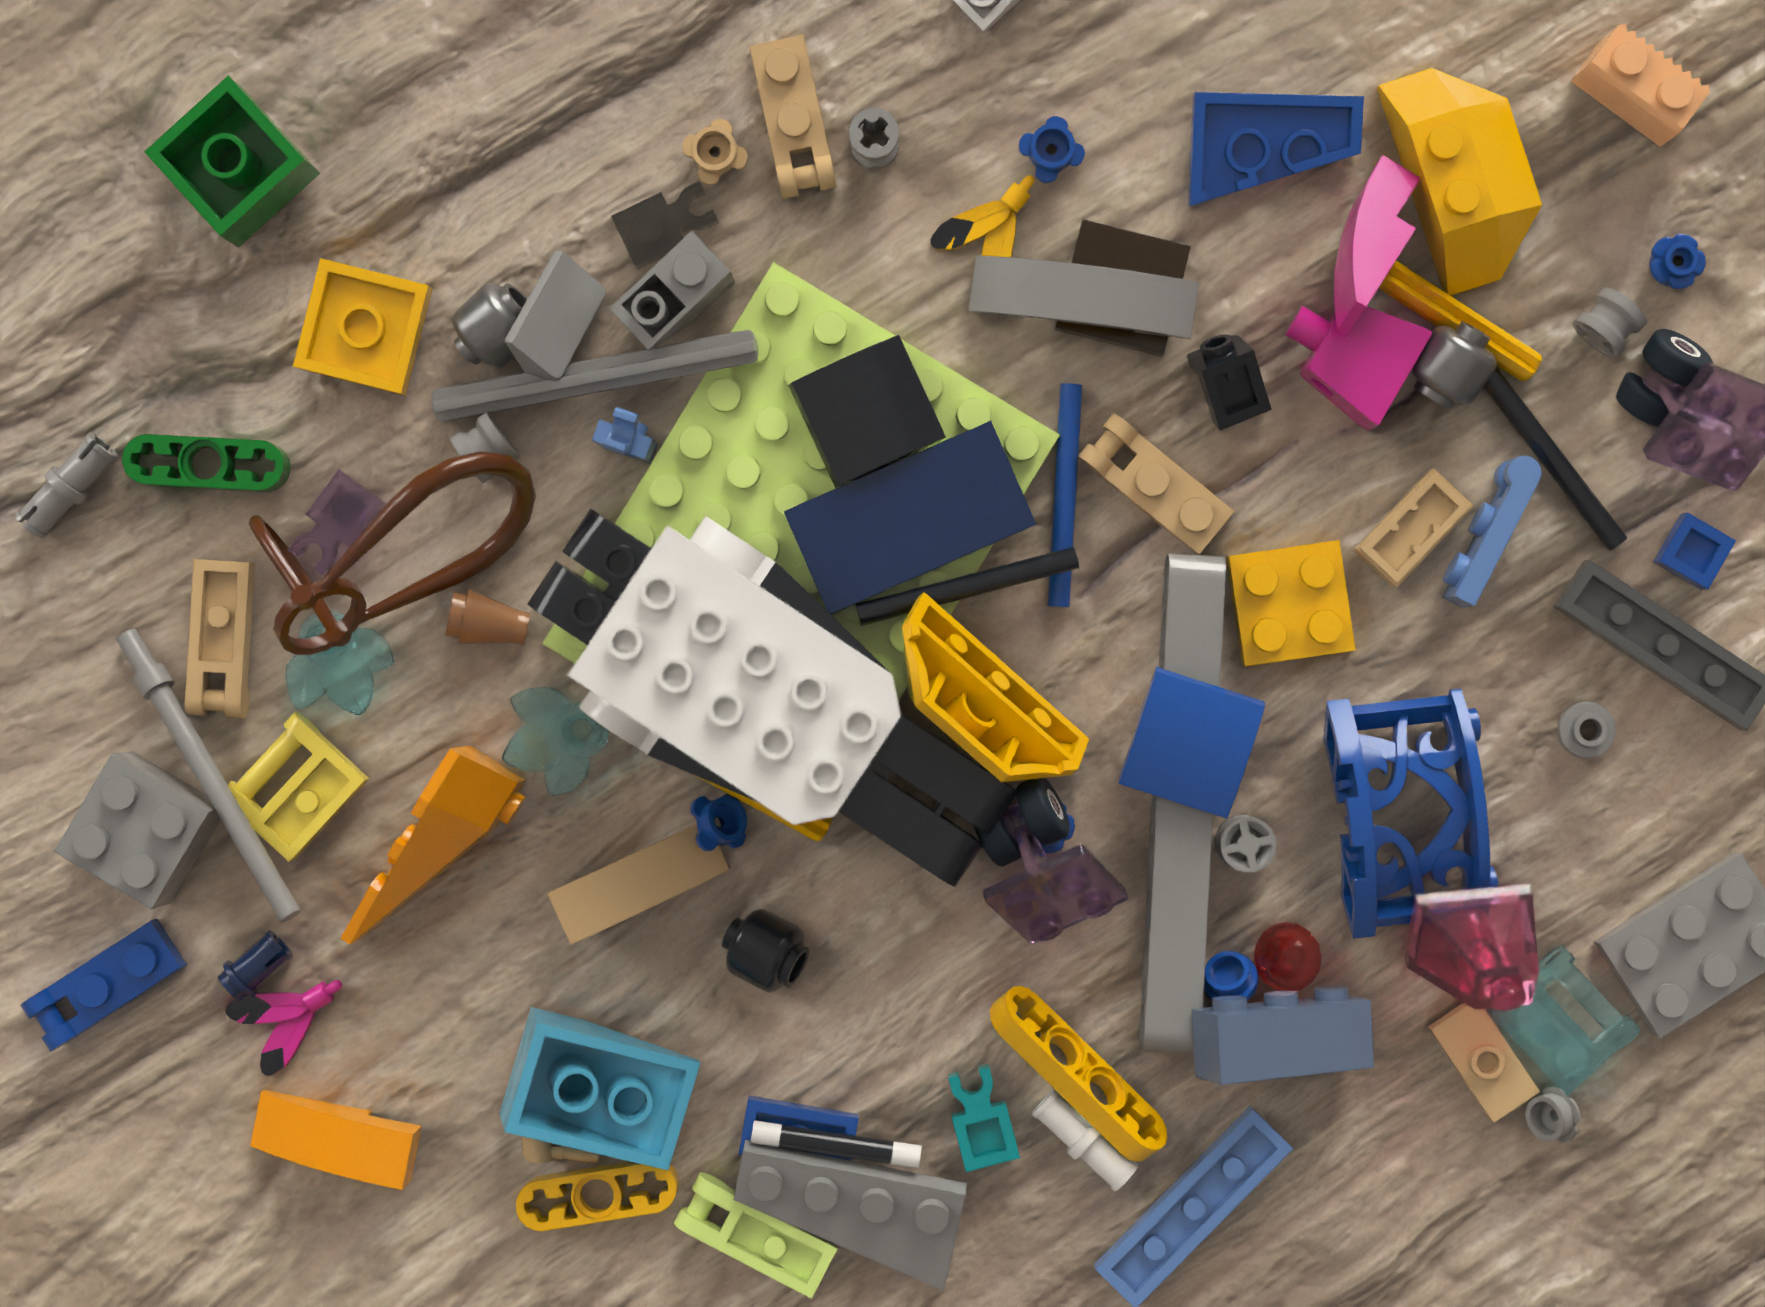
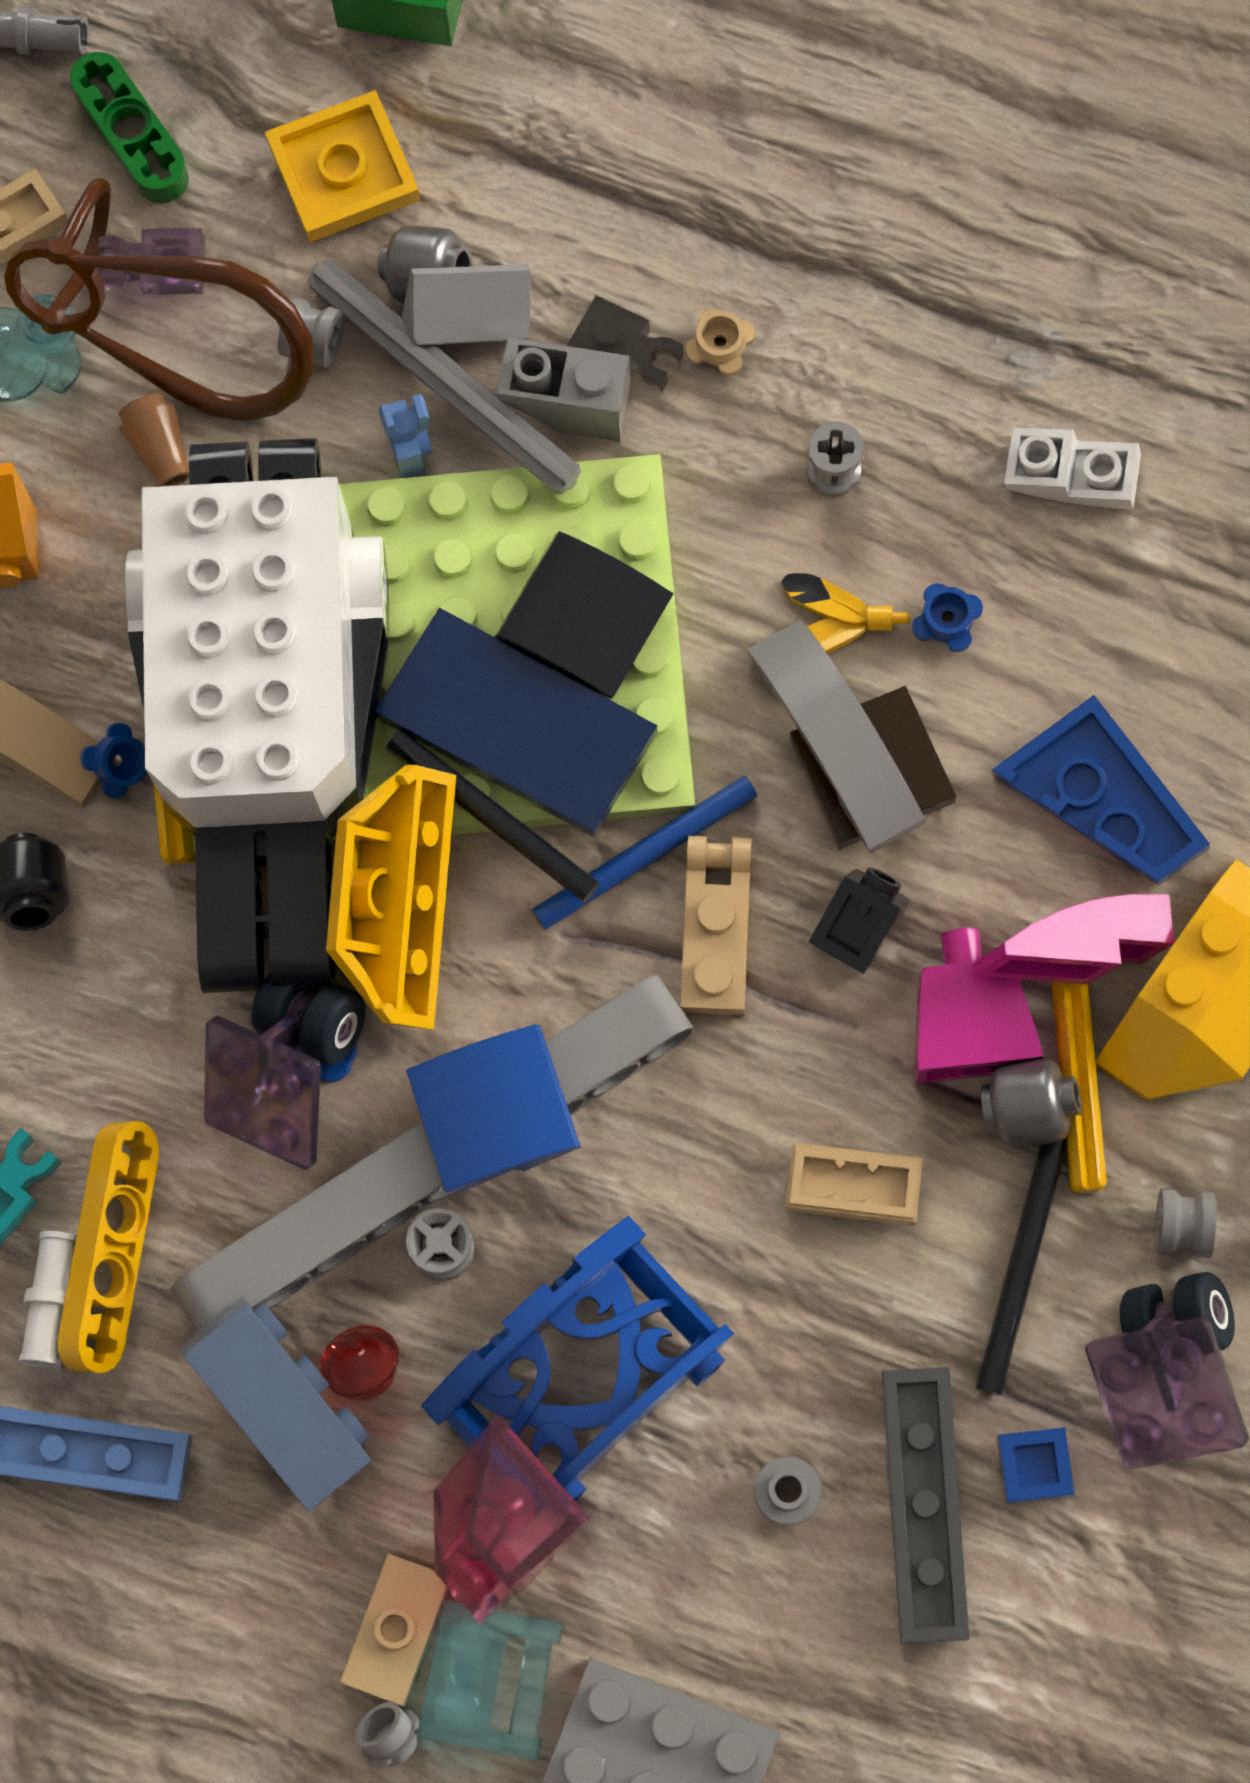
camera: 60 degrees right, 15 degrees down
(548, 739) = (88, 569): clear light blue plate -> none
(792, 114) = (803, 382): tan plate -> none
(1230, 975) = (306, 1320): blue plate -> none
(1290, 603) = (699, 1126): yellow plate -> none
(1492, 530) = (907, 1256): medium blue plate -> none

